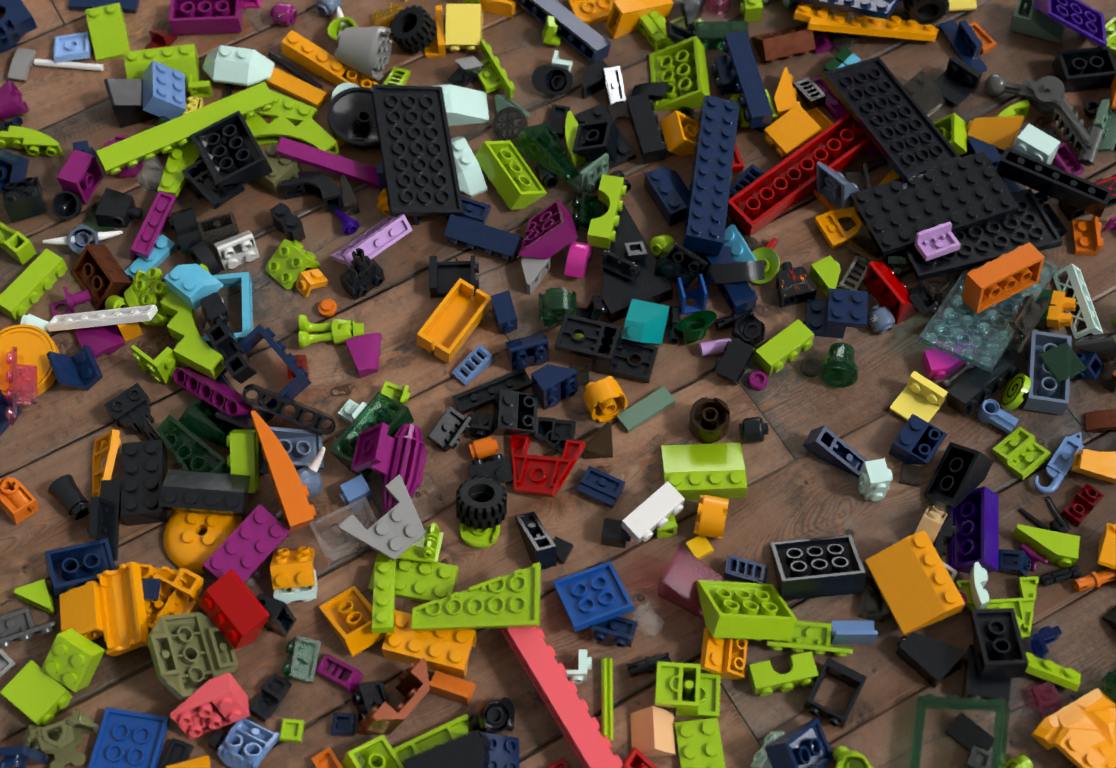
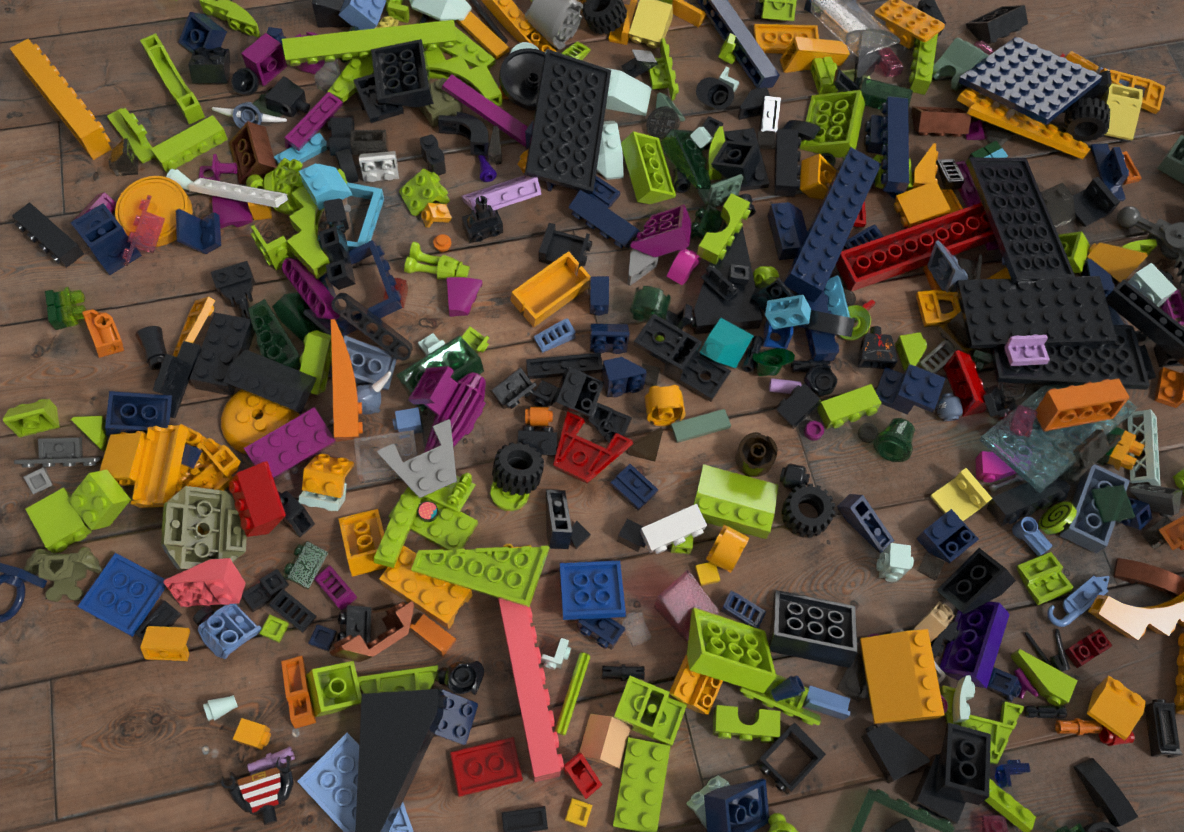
camera: 10 degrees right, 5 degrees up
(298, 697) = (280, 598): none -> black slope
(406, 571) = (427, 511): none -> tile
(553, 127) = (701, 137): none -> light aqua slope
(696, 272) = (788, 312): none -> medium azure brick
(778, 443) = (814, 497): none -> black tyre
(812, 627) = (788, 688): none -> dark blue cone
(953, 309) = (1023, 421): none -> clear pink bracket

